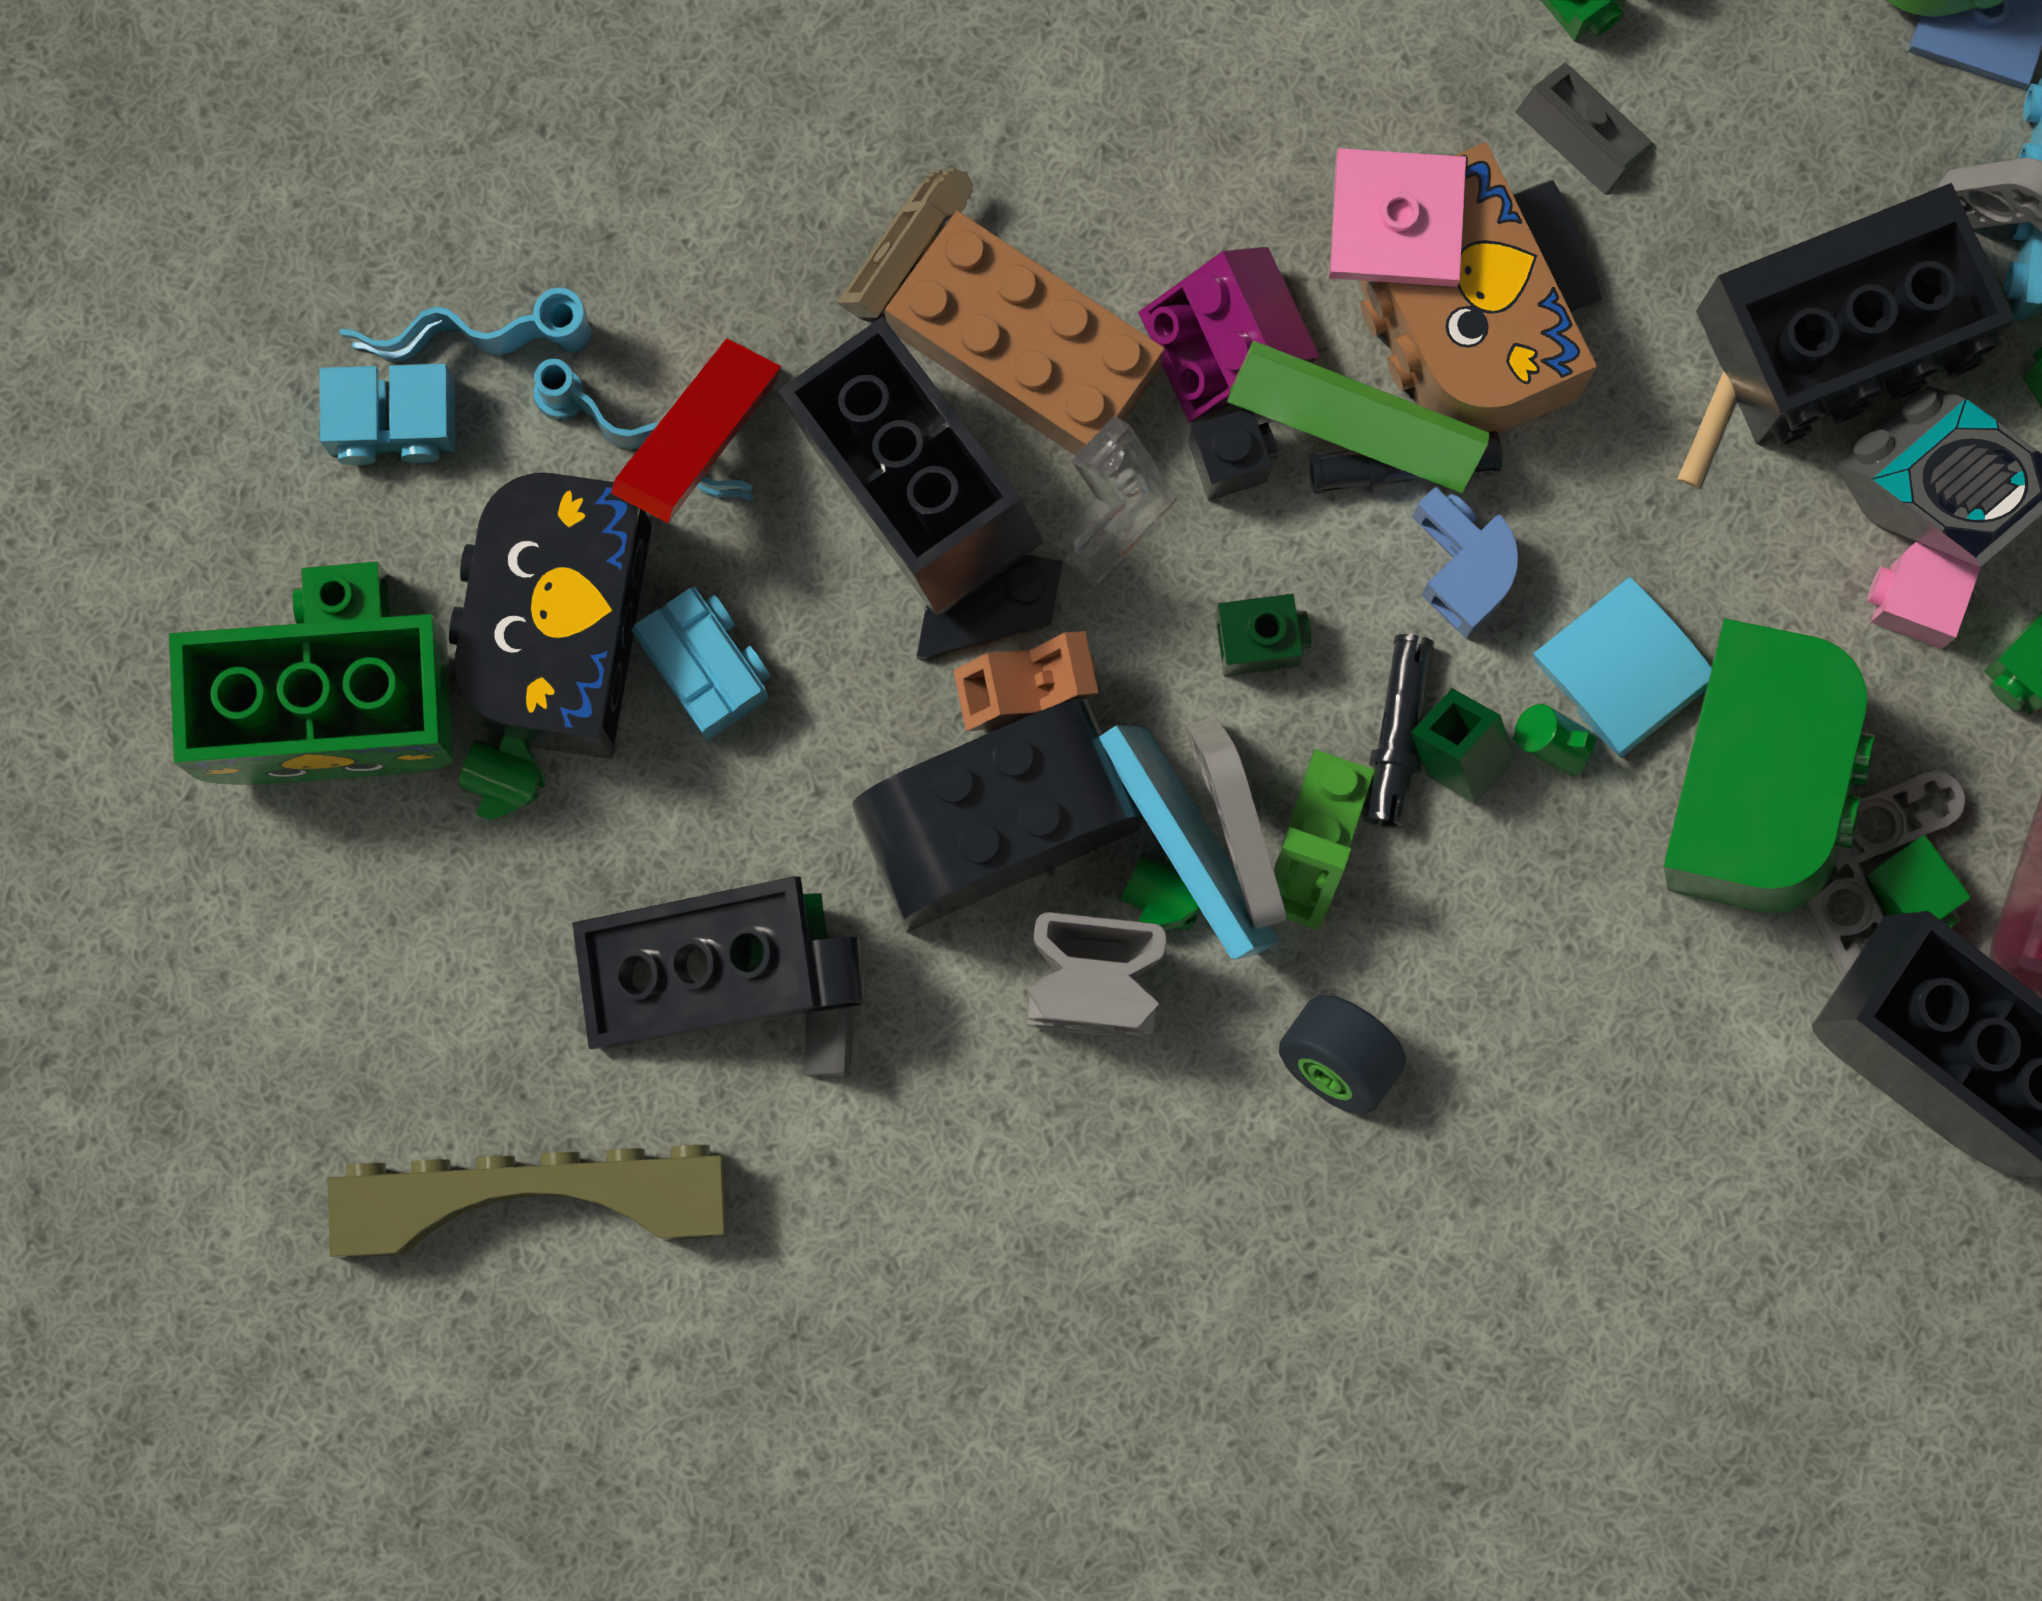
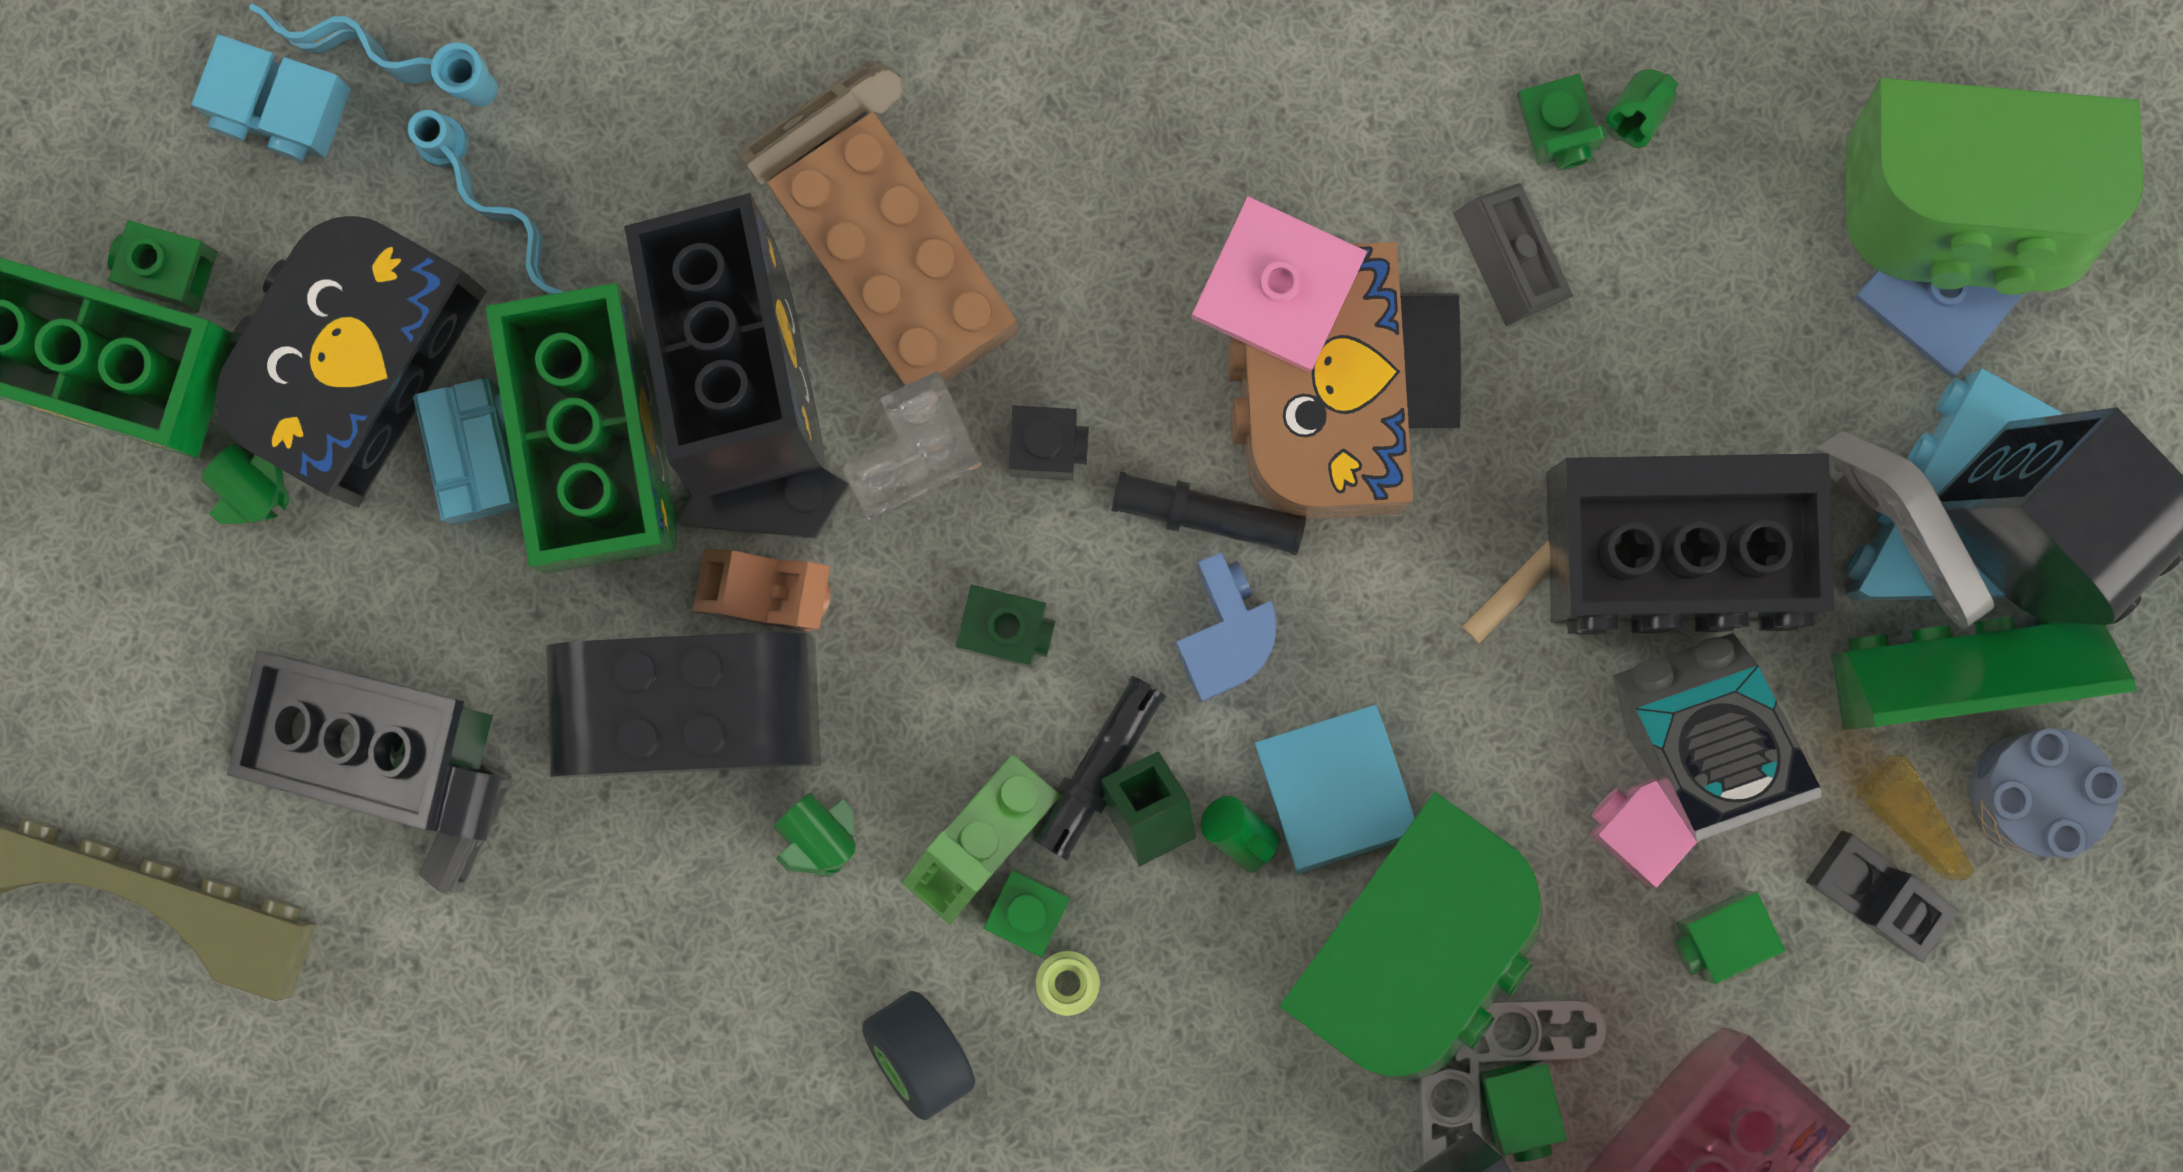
camera: 20 degrees right, 5 degrees up
(696, 430) = (541, 231): red tile -> none
(808, 590) = (582, 429): none -> green brick
(1095, 976) = (710, 897): light grey piece -> none
(1185, 838) = (852, 801): medium azure tile -> none
(1215, 318) = (1091, 324): magenta slope -> none
(1227, 783) = (899, 765): light grey beam -> none
(1358, 417) = (1172, 458): bright green tile -> none
(1389, 884) = (1027, 912): none -> green brick
(1462, 923) = (1067, 1004): none -> yellowish green plate

